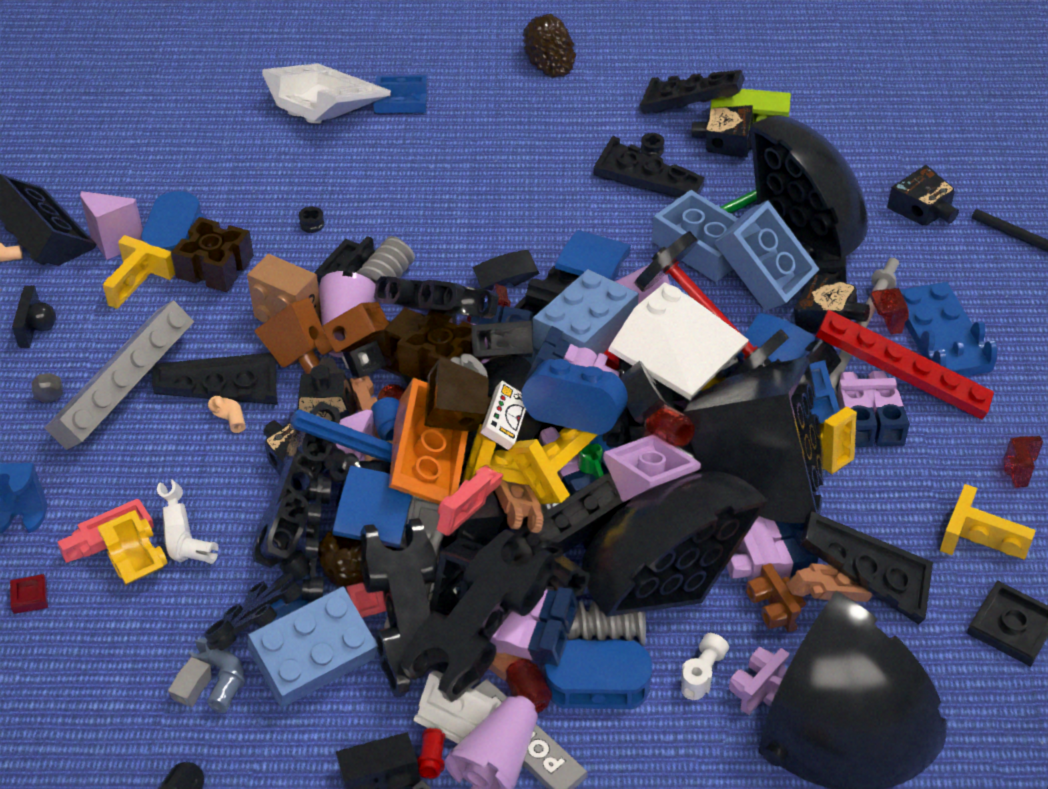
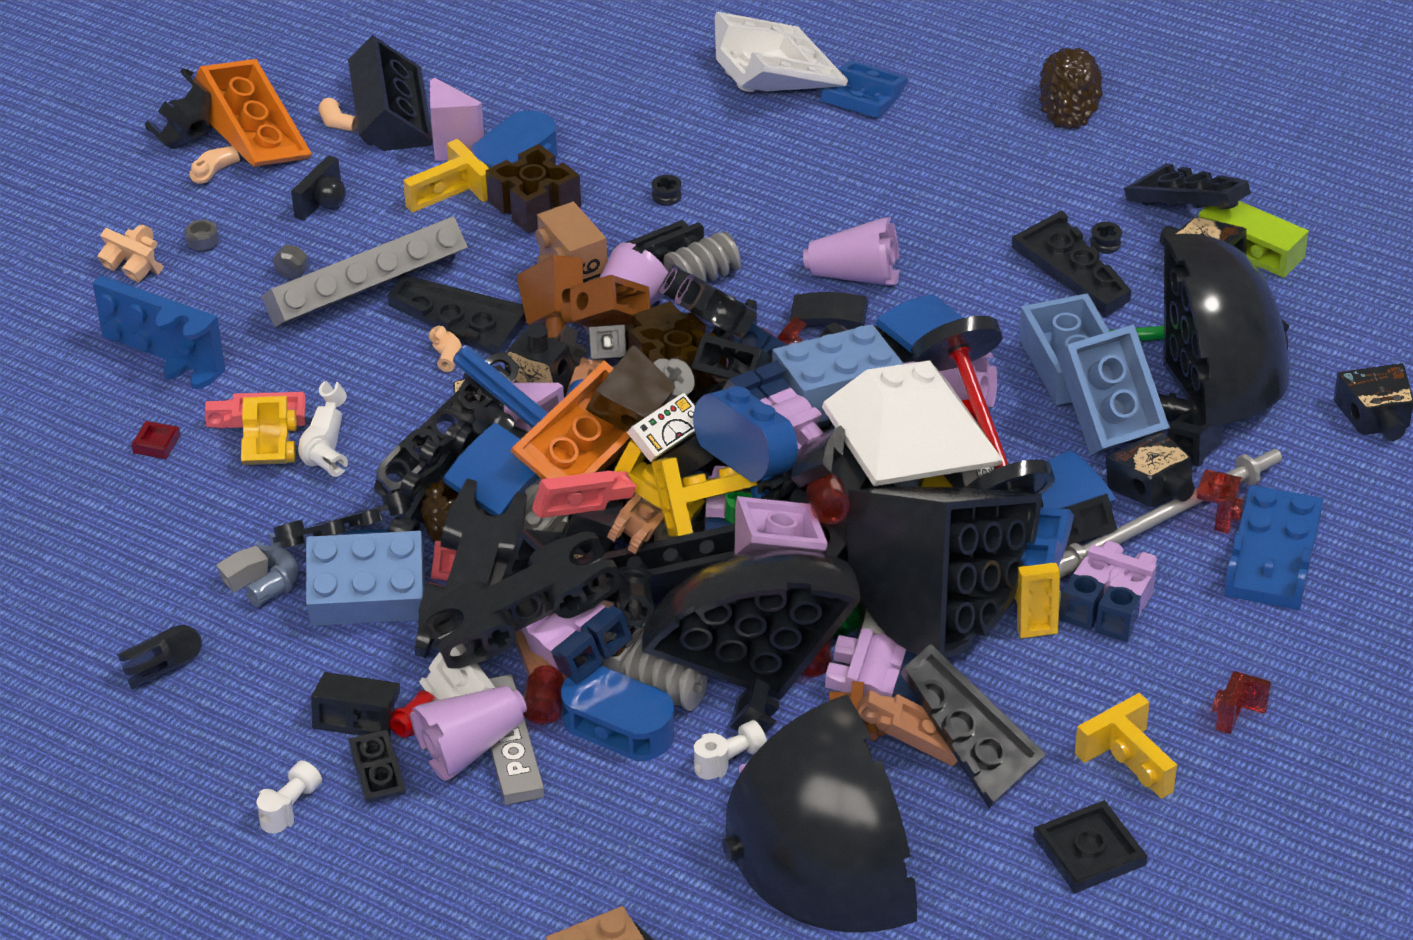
camera: 30 degrees right, 5 degrees down
(497, 219) = (857, 254): none -> lavender cone
(695, 621) = (755, 705): none -> black tile
(905, 364) = (1182, 557): red plate -> none

